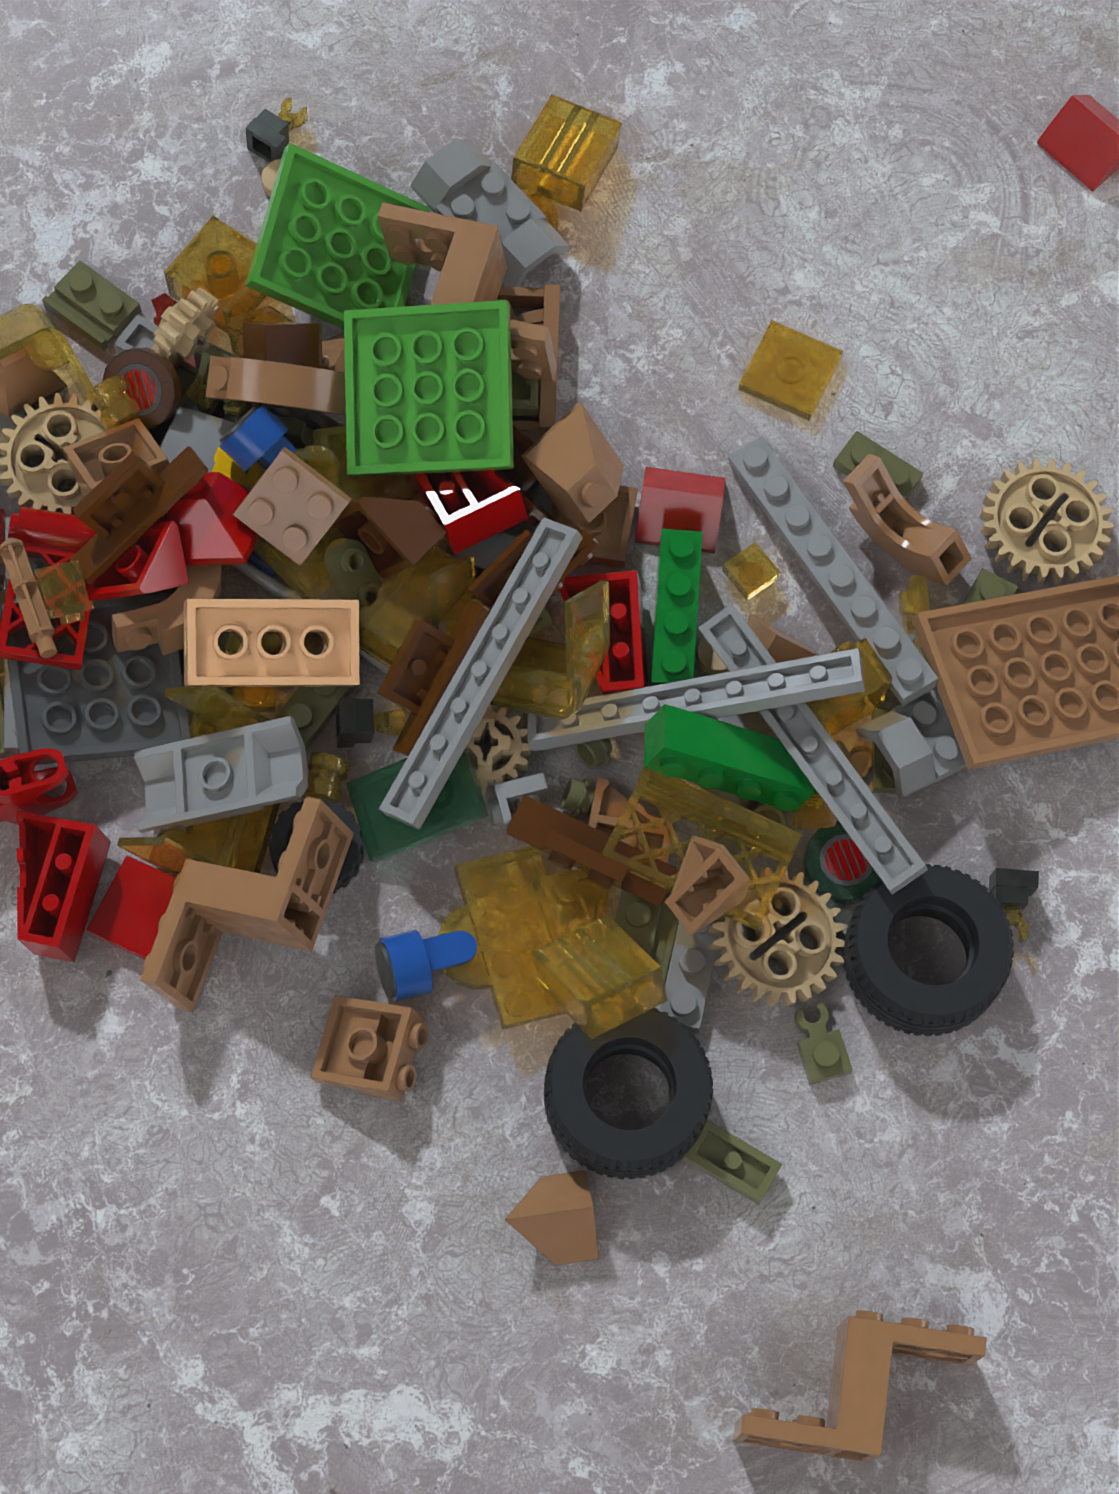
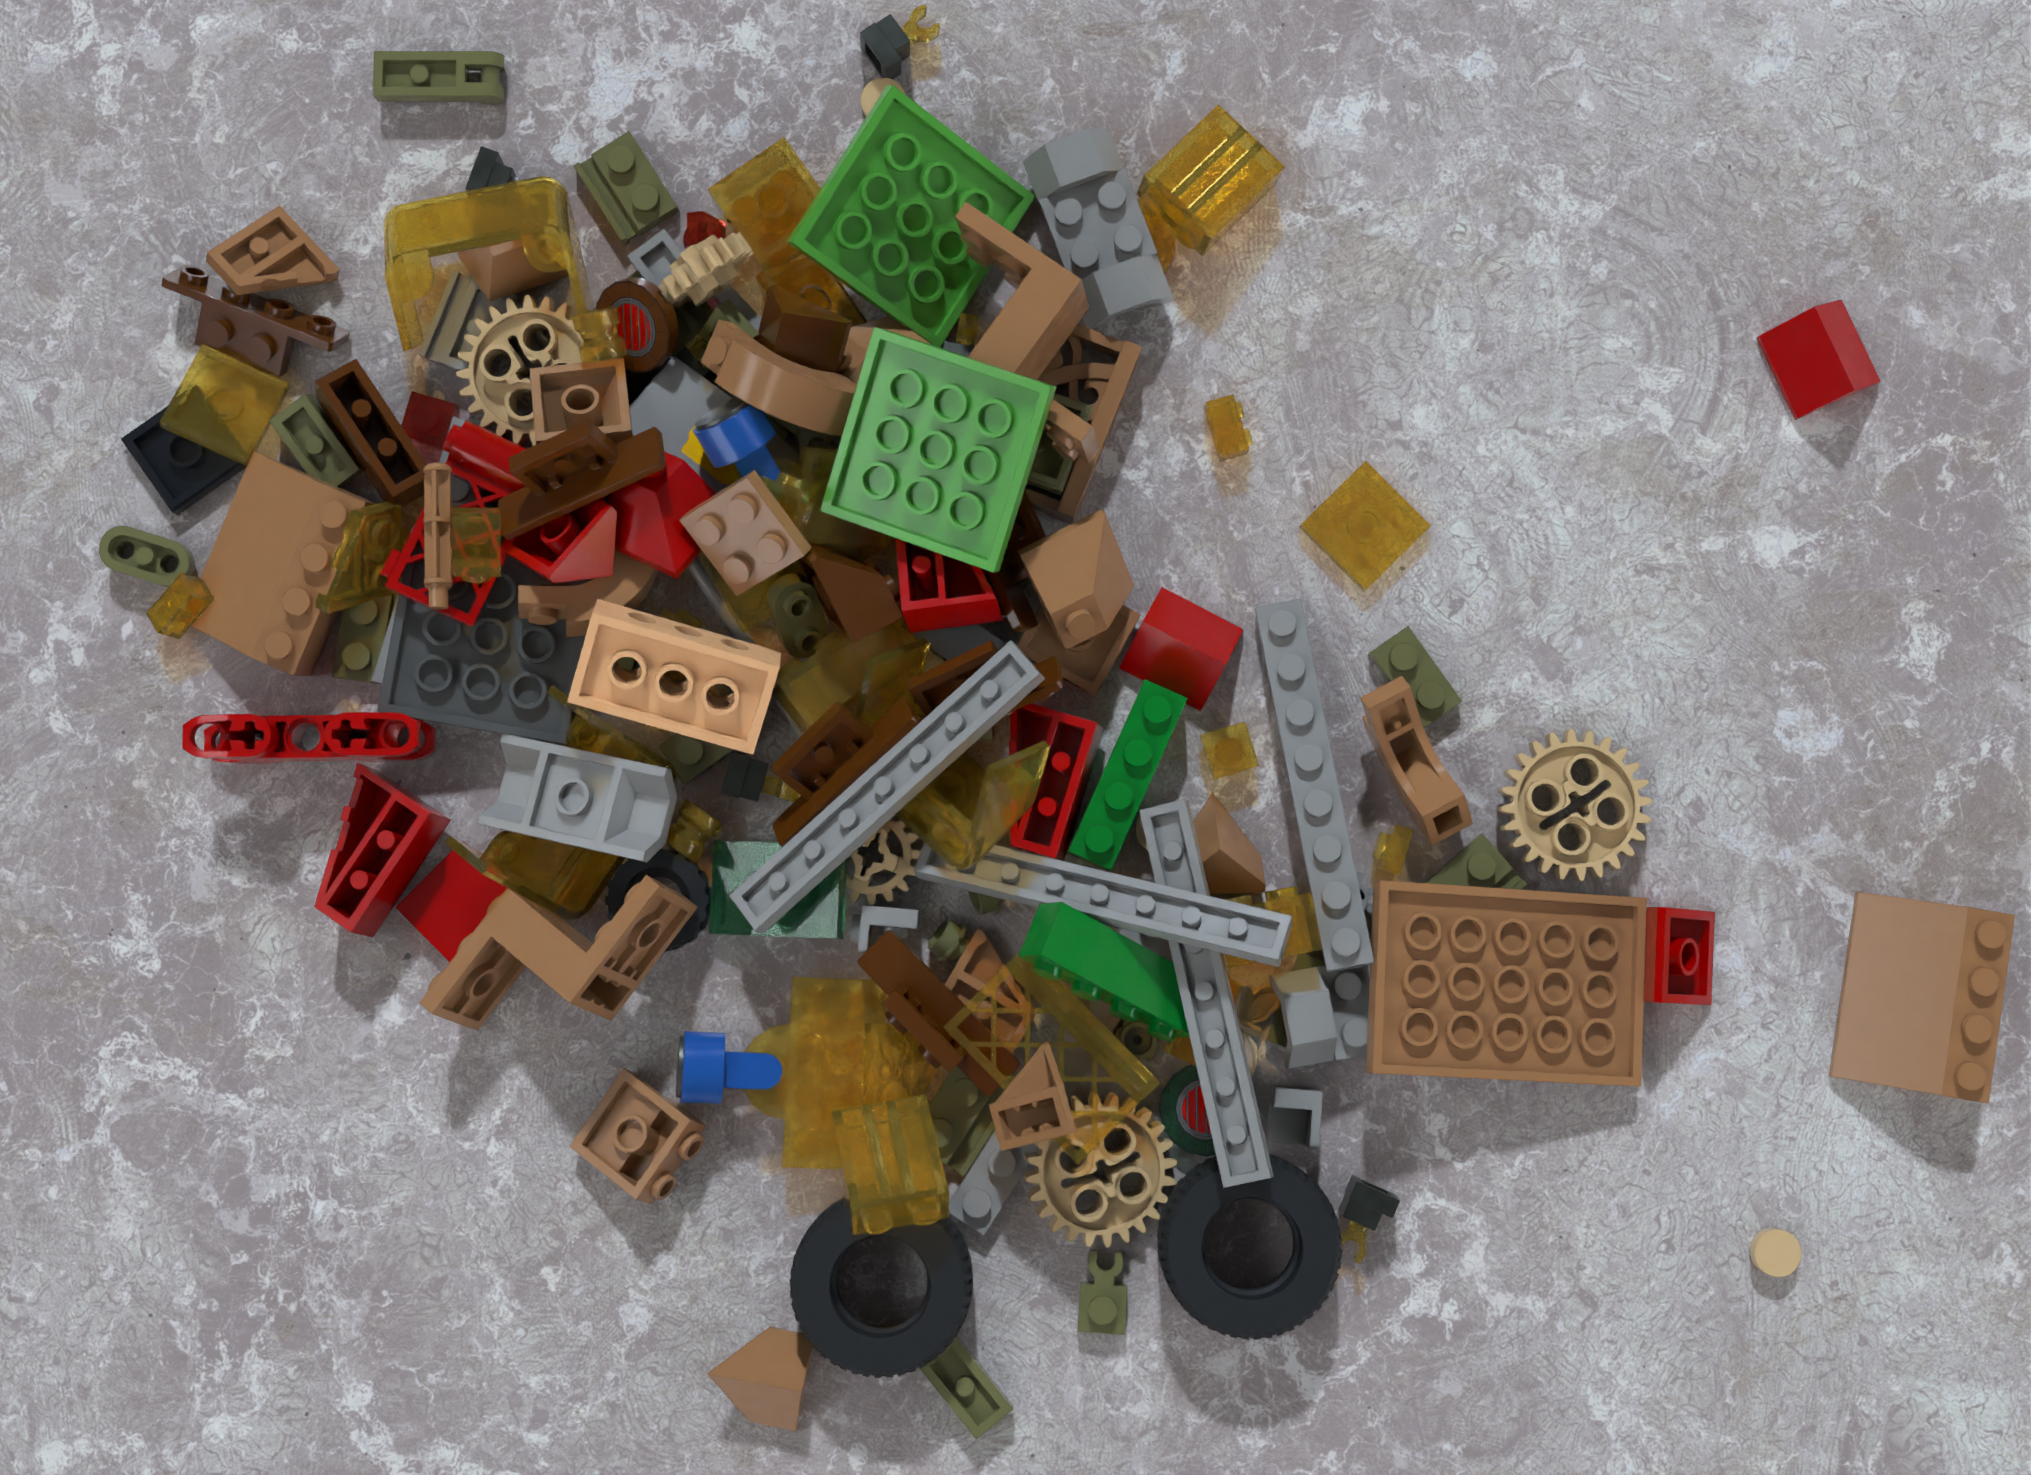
camera: 25 degrees right, 15 degrees up
(651, 331) = (1226, 427): none -> clear yellow piece
(927, 834) = (1295, 1116): none -> light grey panel

